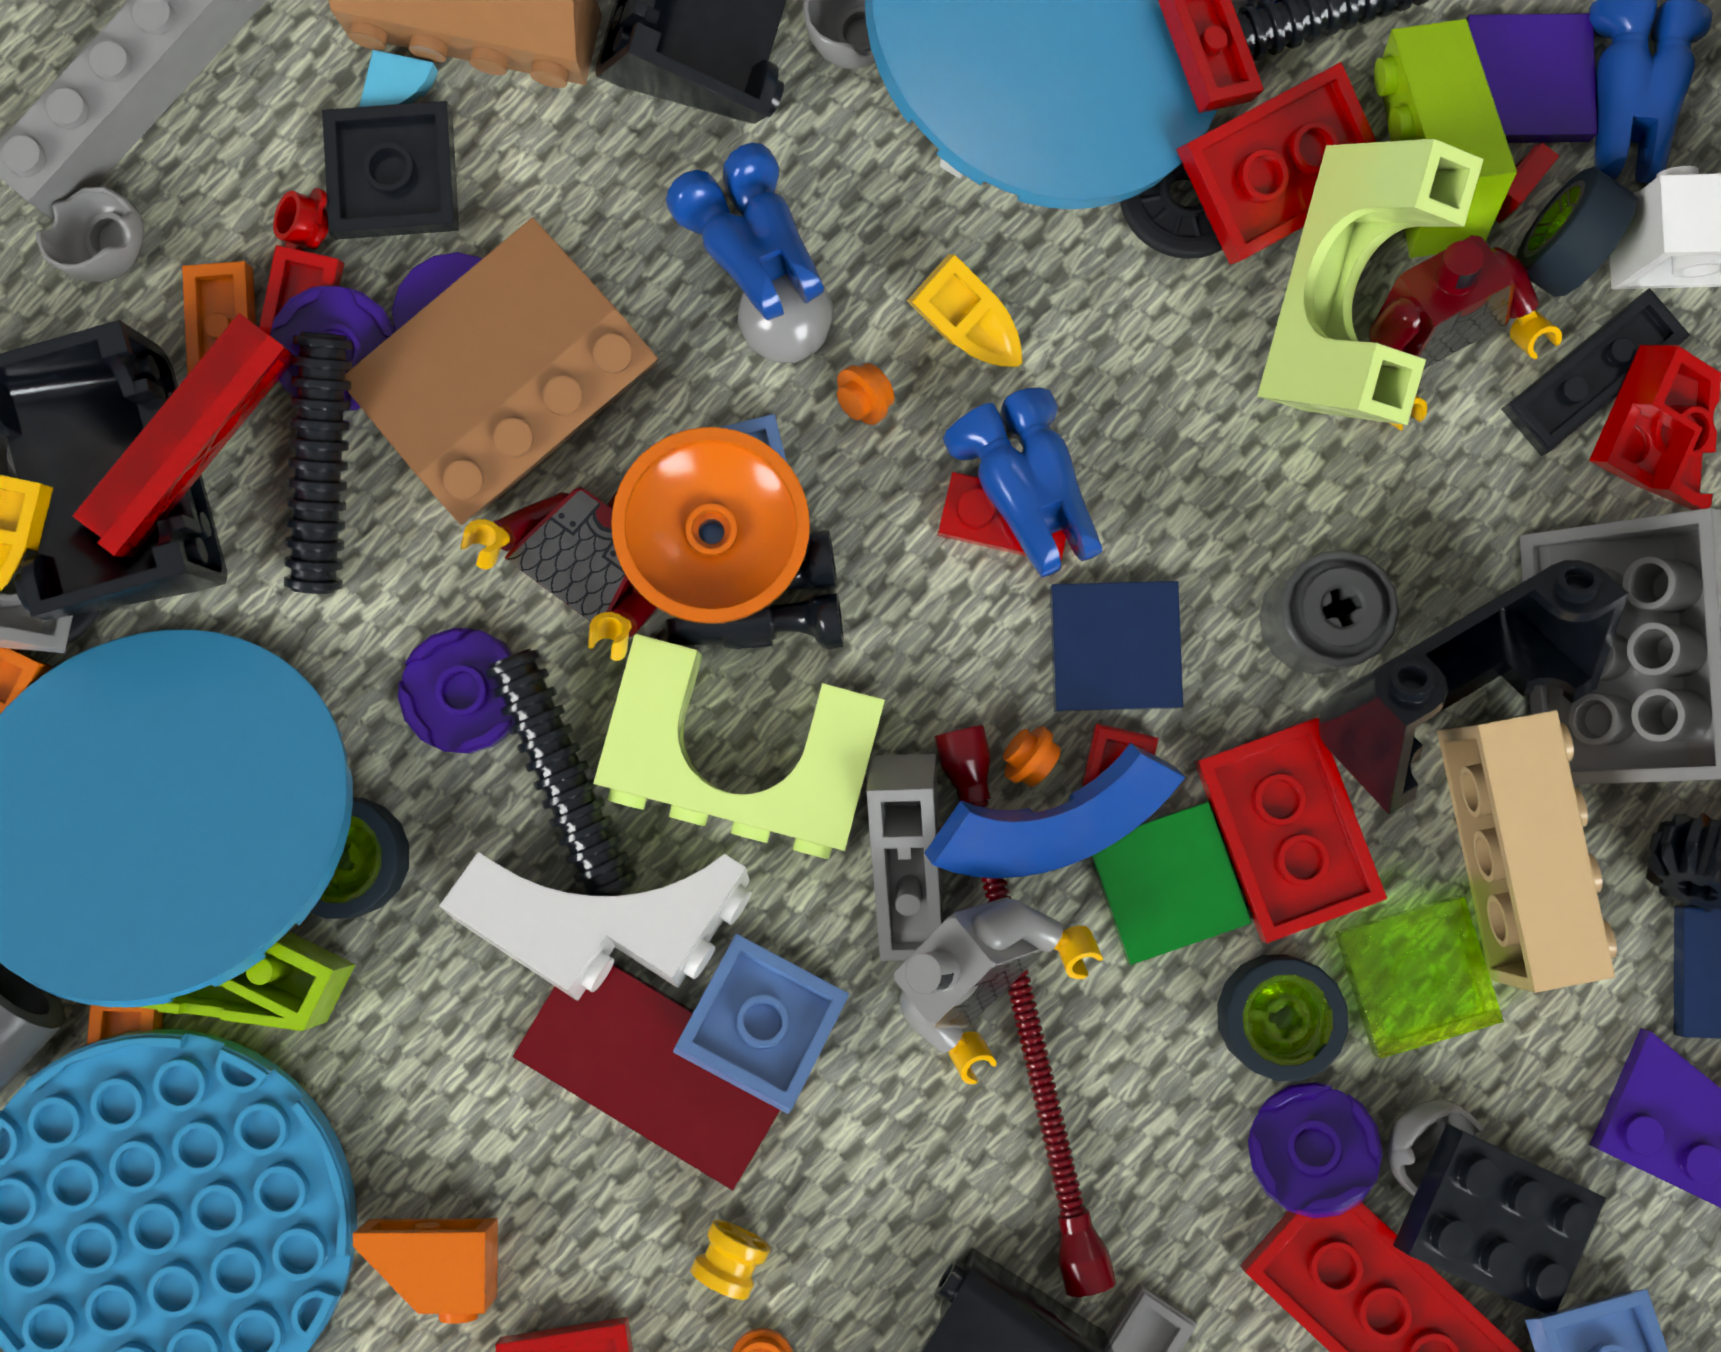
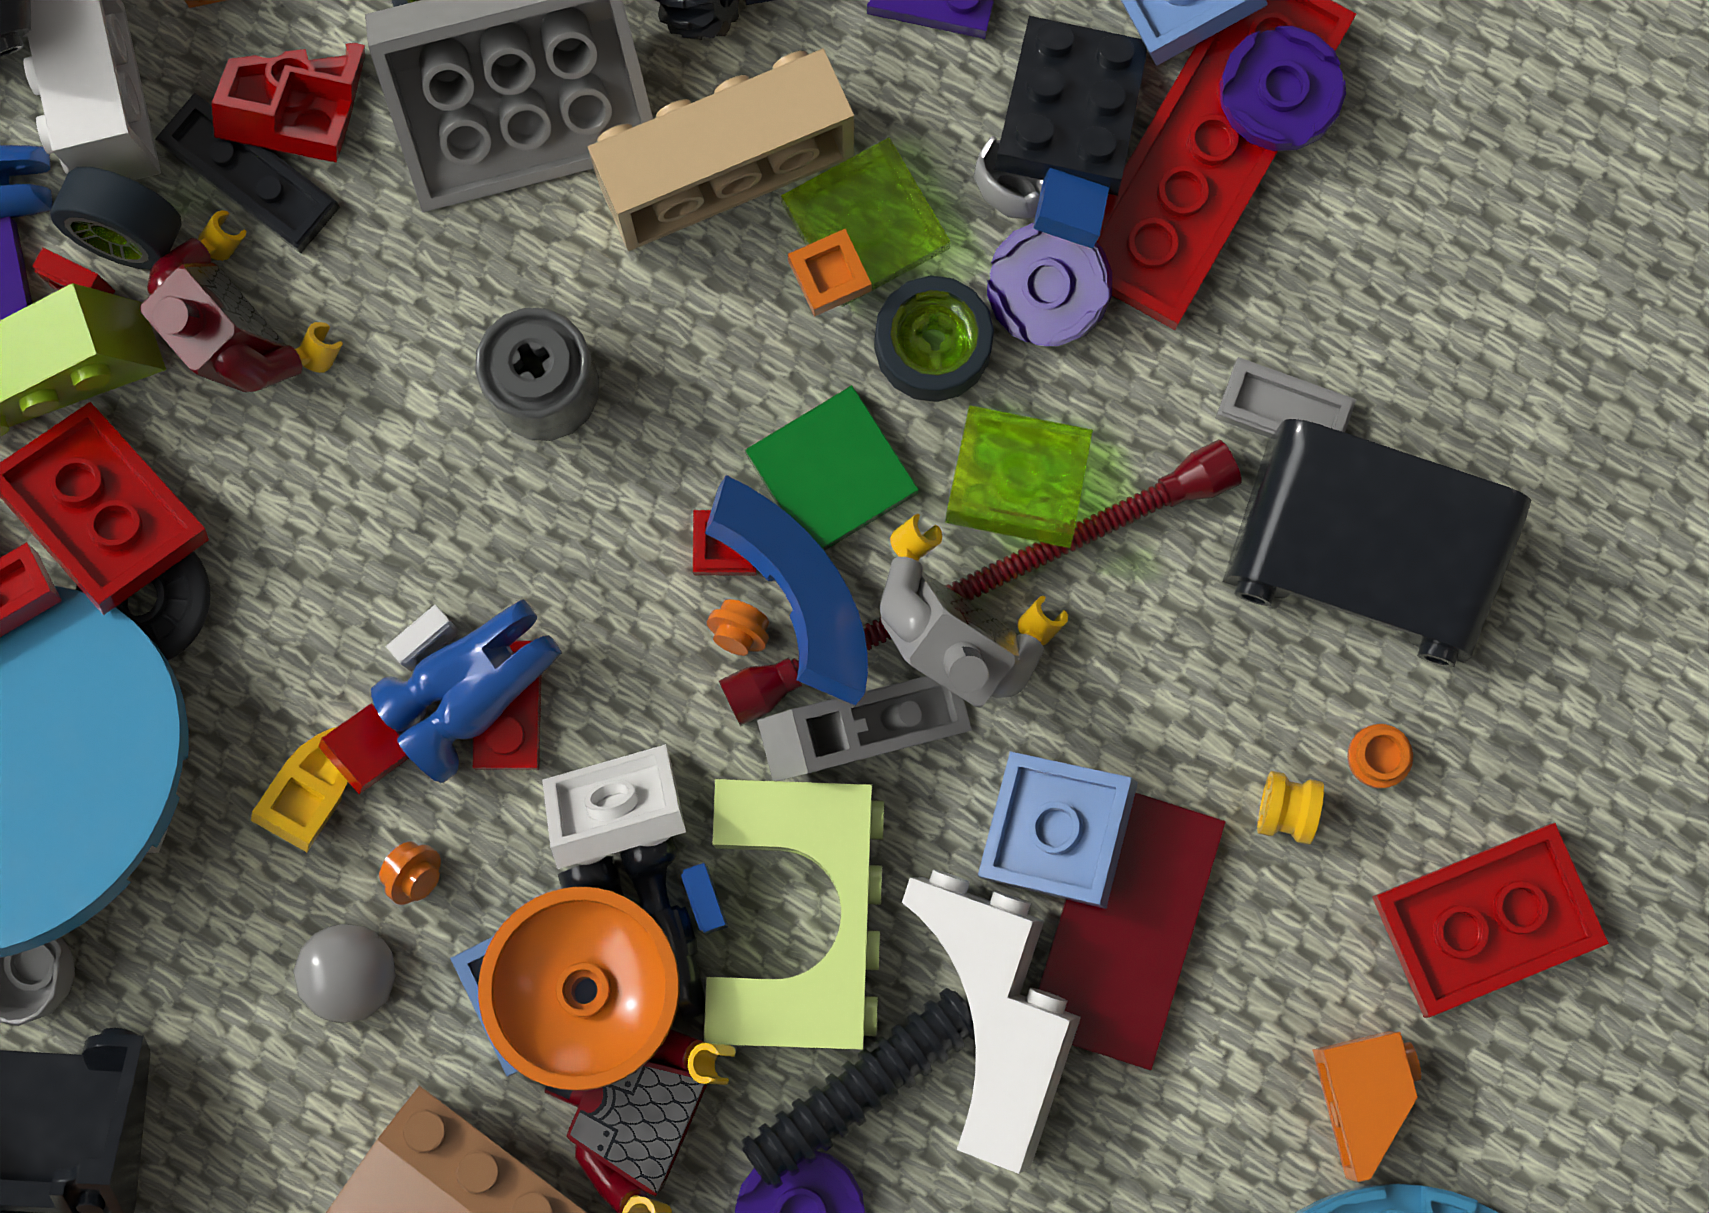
camera: 105 degrees left, 5 degrees down
(749, 246) = (280, 1014): blue piece -> none
(774, 664) = (704, 899): none -> blue tile
(880, 595) = (612, 807): none -> white plate
(992, 371) = (363, 749): none -> red tile
(1087, 449) = (422, 638): none -> white tile
(1116, 646) = (612, 570): dark blue tile -> none
(1121, 1070) = (1019, 476): none -> clear neon green plate
(1290, 831) = (752, 370): red plate -> none
(1356, 205) = (133, 429): yellowish green arch -> none
(1372, 928) = (829, 272): none -> orange plate
(1389, 1194) = (1071, 208): none -> blue tile
(1538, 633) = (519, 181): black windscreen -> none

